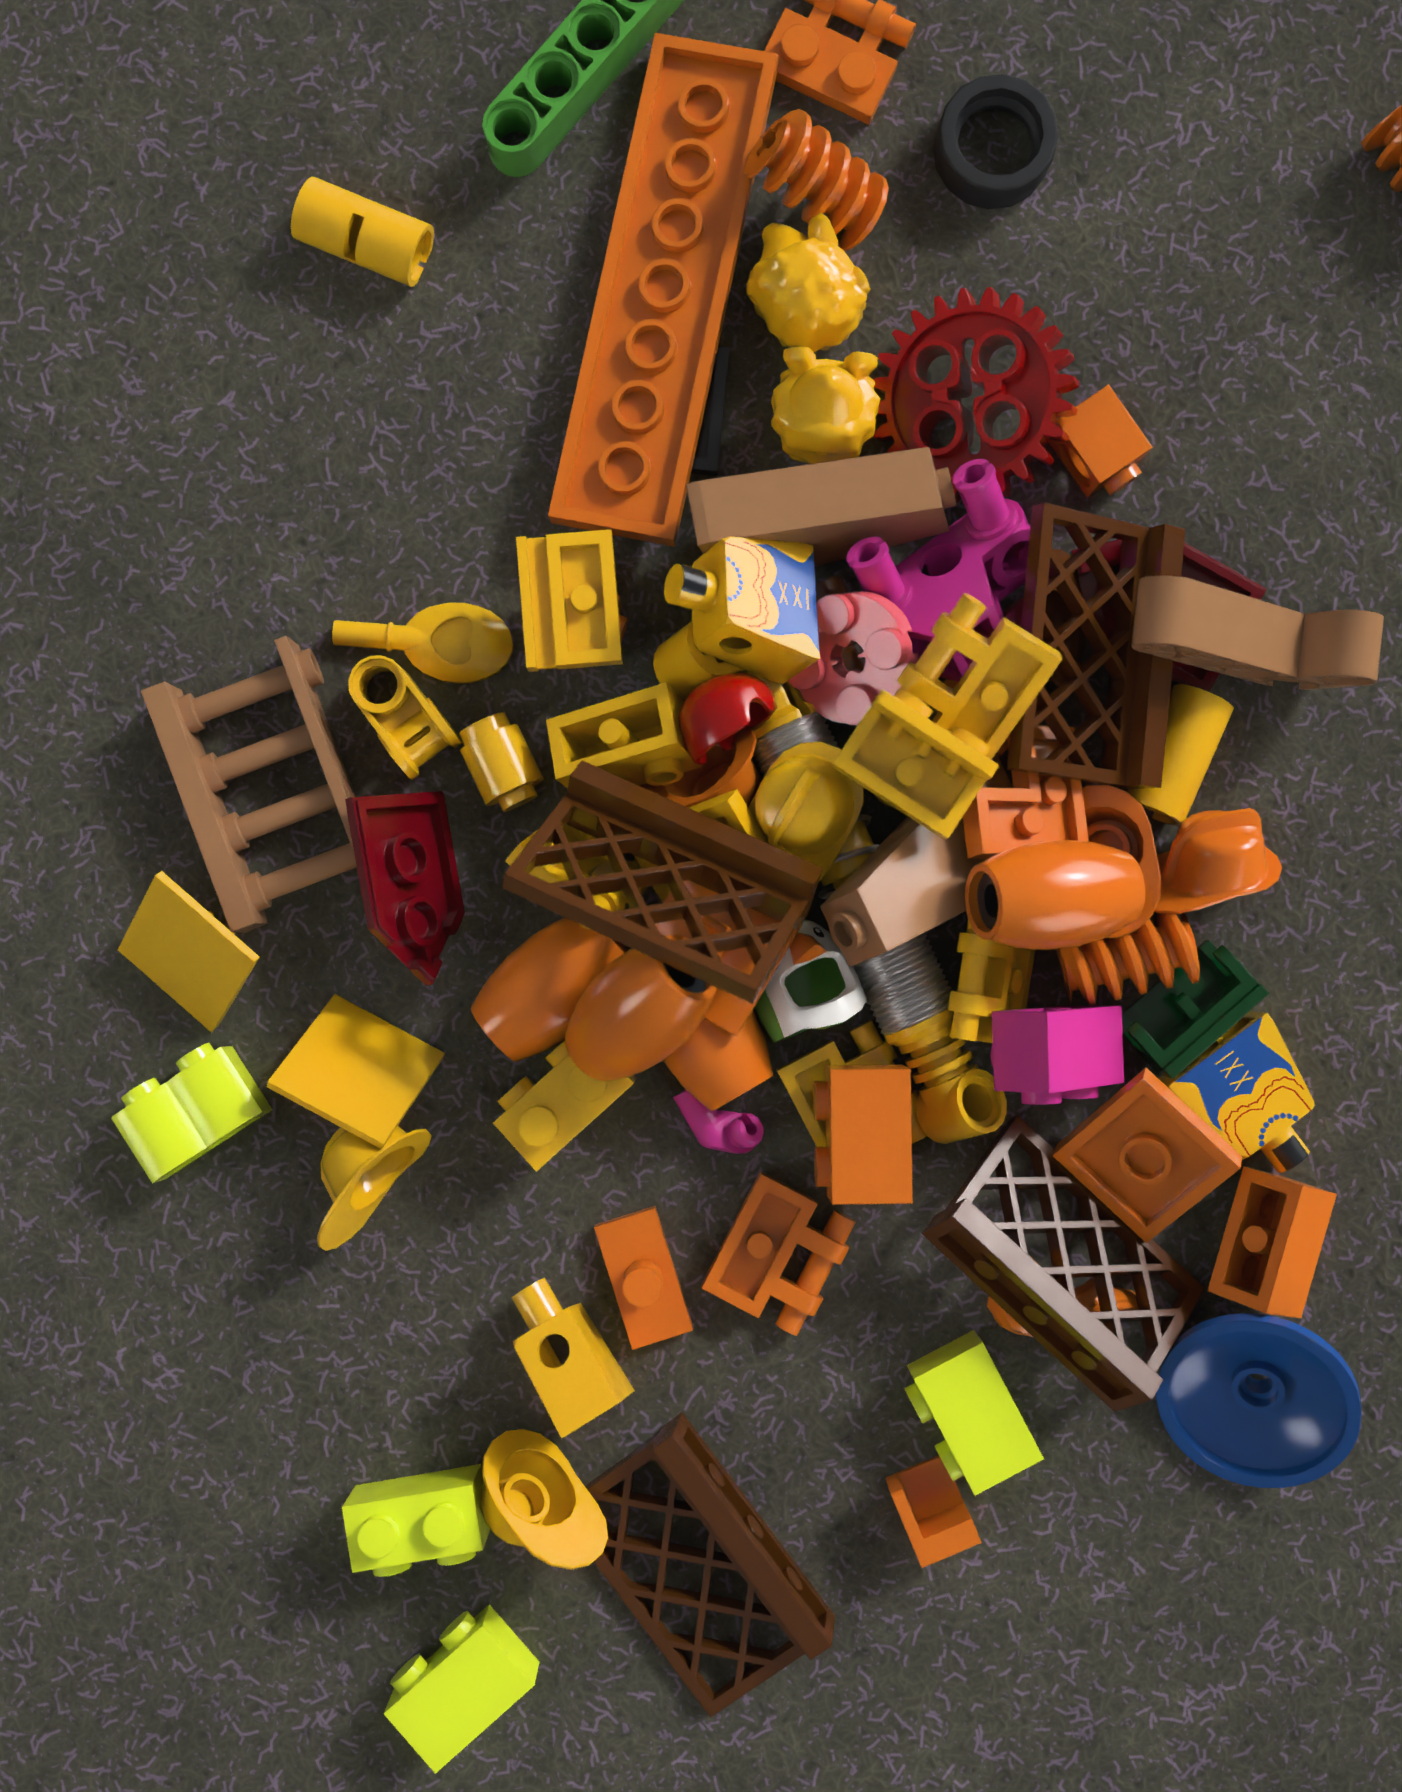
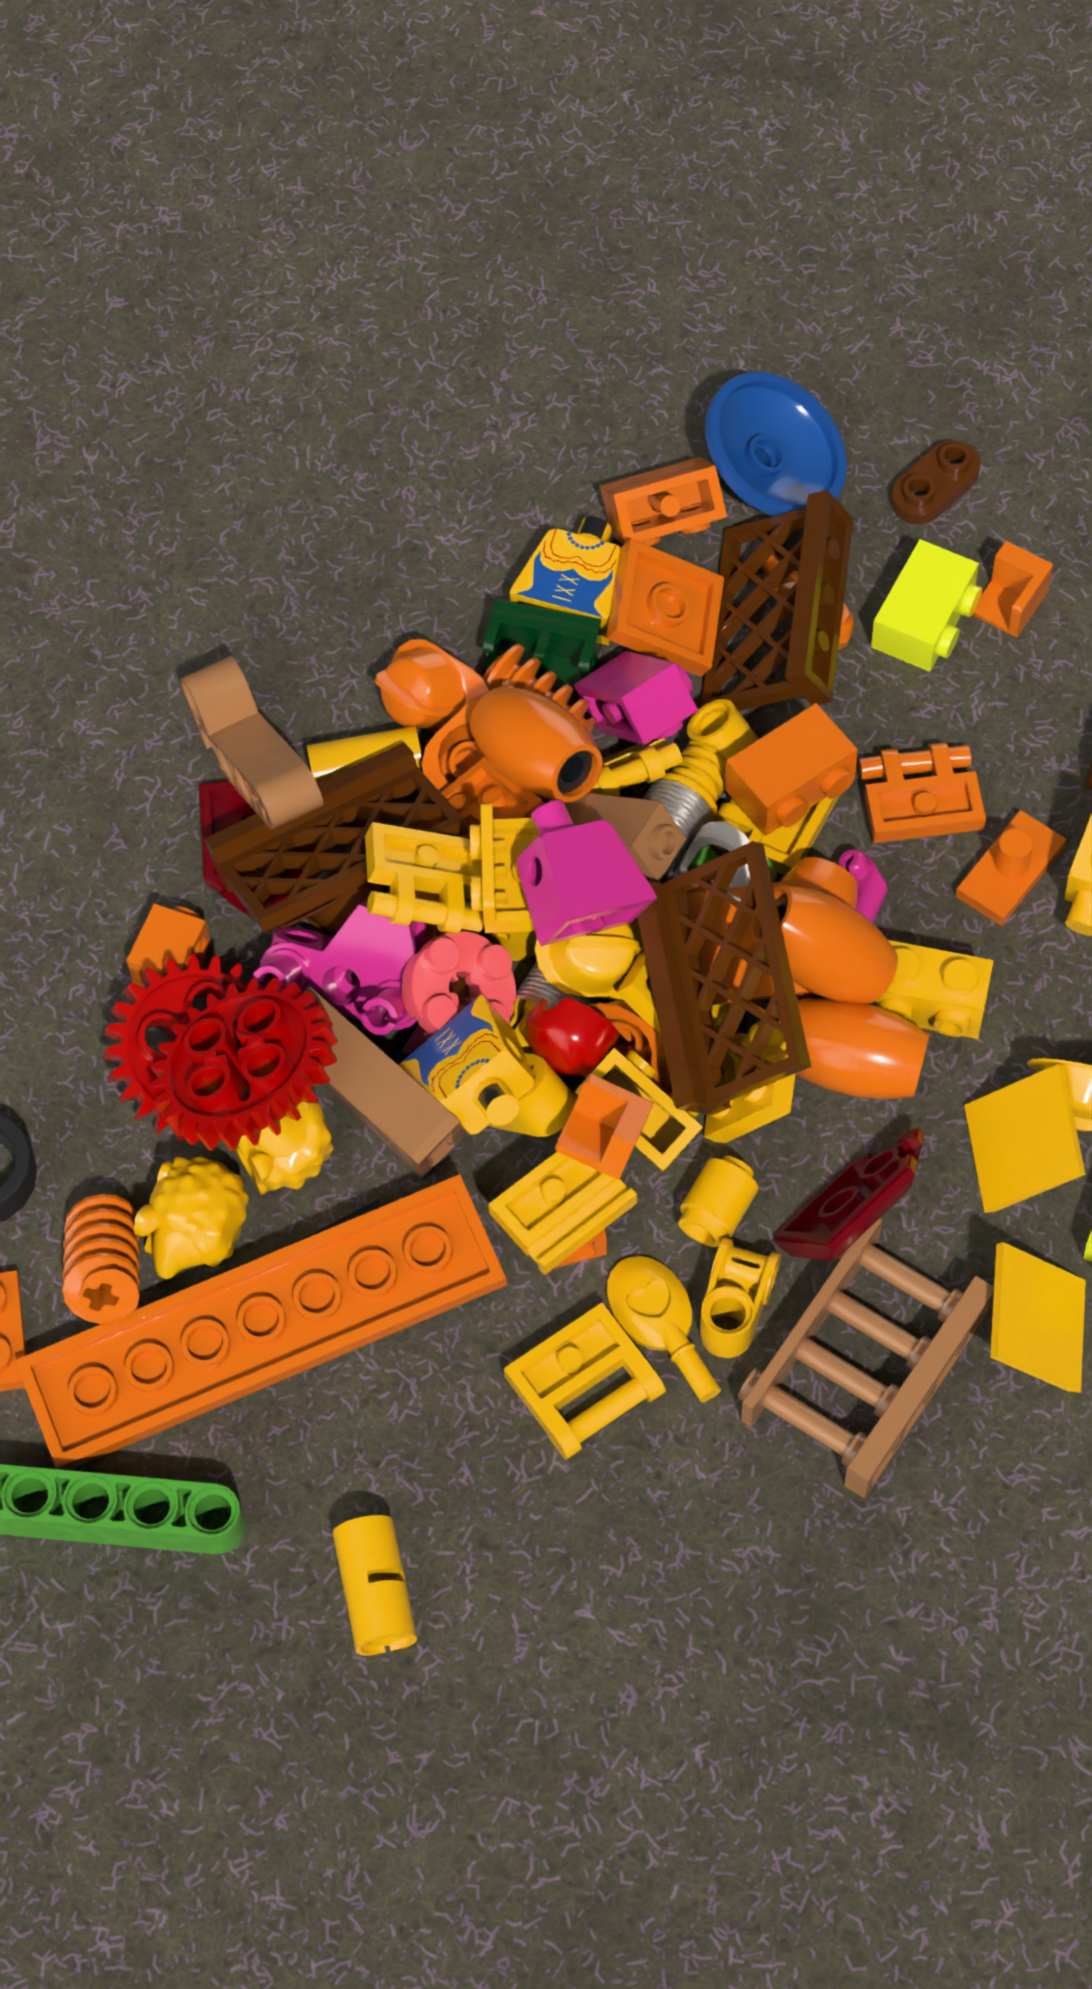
camera: 120 degrees left, 25 degrees down
(442, 531) = (570, 1366): none -> yellow plate
(600, 673) = (604, 1126): none -> orange panel
(854, 808) = (579, 877): none -> dark pink torso
(909, 374) = (282, 1058): none -> red gear
(1113, 1537) = (938, 480): none -> reddish brown plate

